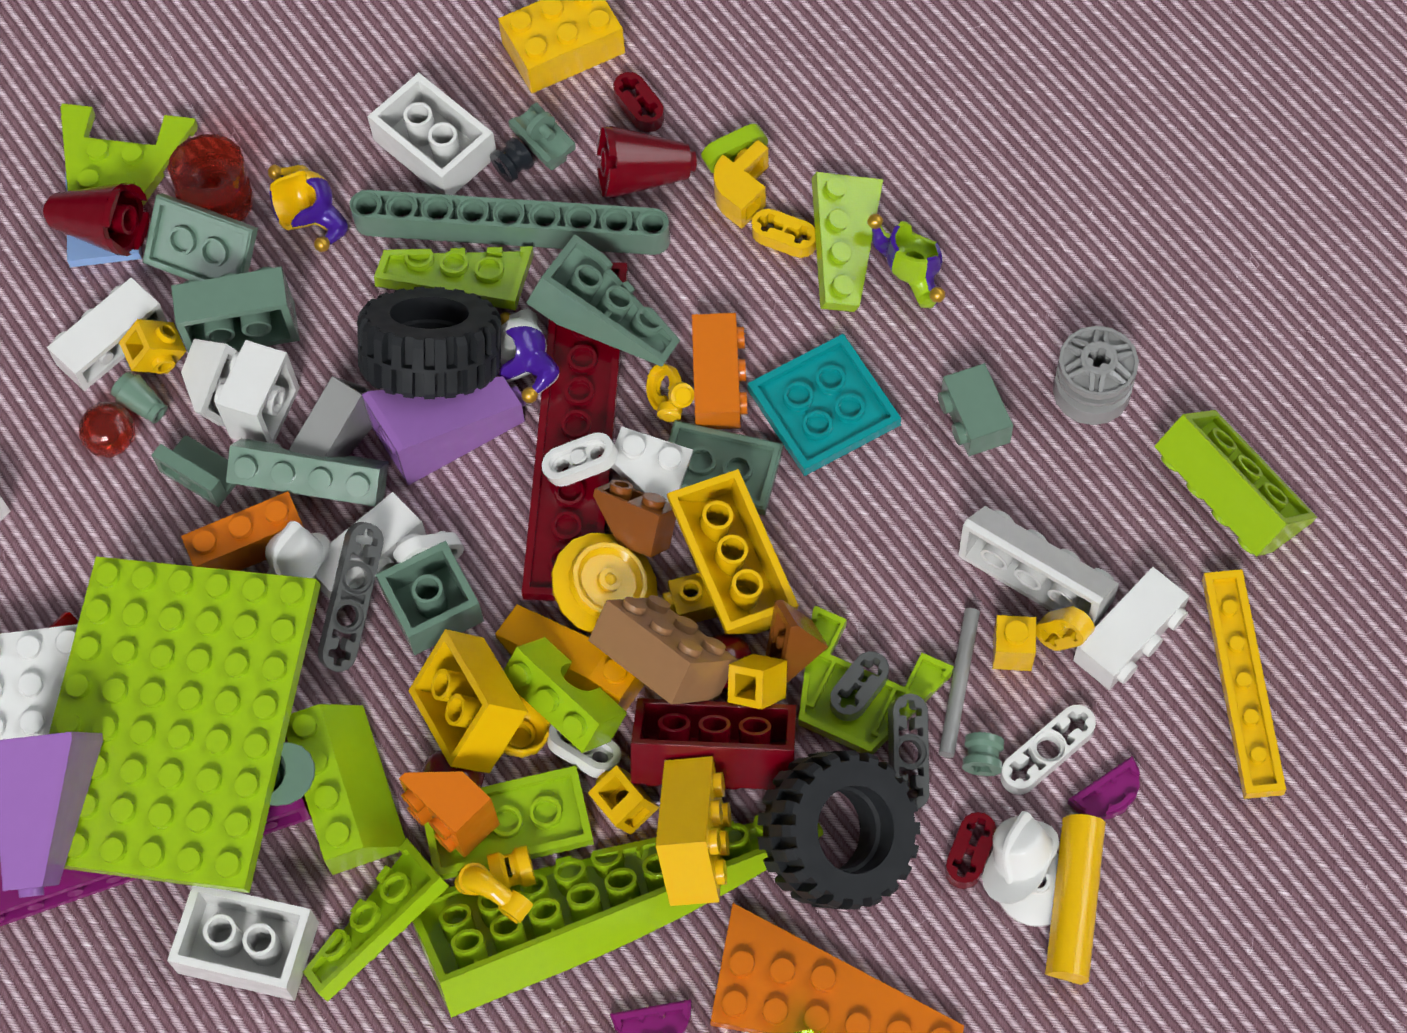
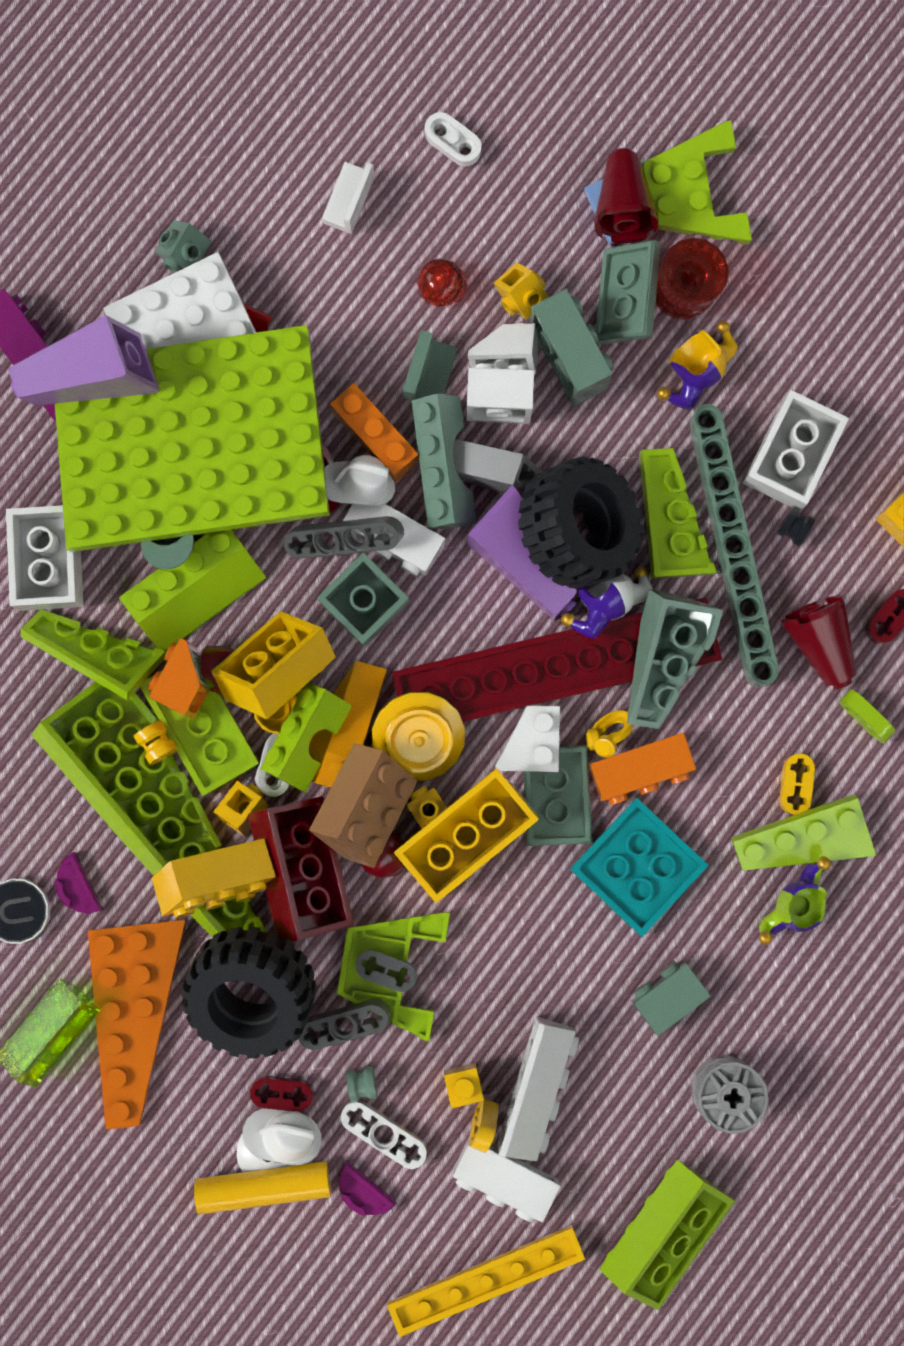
camera: 70 degrees right, 20 degrees up
(92, 343) = (514, 241): white brick -> none
(137, 396) = (476, 297): sand green cone -> none
(413, 545) = (398, 575): white plate -> none
(476, 880) = (131, 720): yellow piece -> none
(543, 136) = (826, 545): sand green hips -> none
(580, 458) = (518, 683): white plate -> none
(636, 518) = (482, 743): dark orange slope -> none
(735, 184) = (824, 728): yellow brick -> none
(757, 681) = (362, 888): yellow brick -> none
(793, 638) = (409, 906): dark orange slope -> none
(959, 683) = (422, 1047): light grey bar -> none

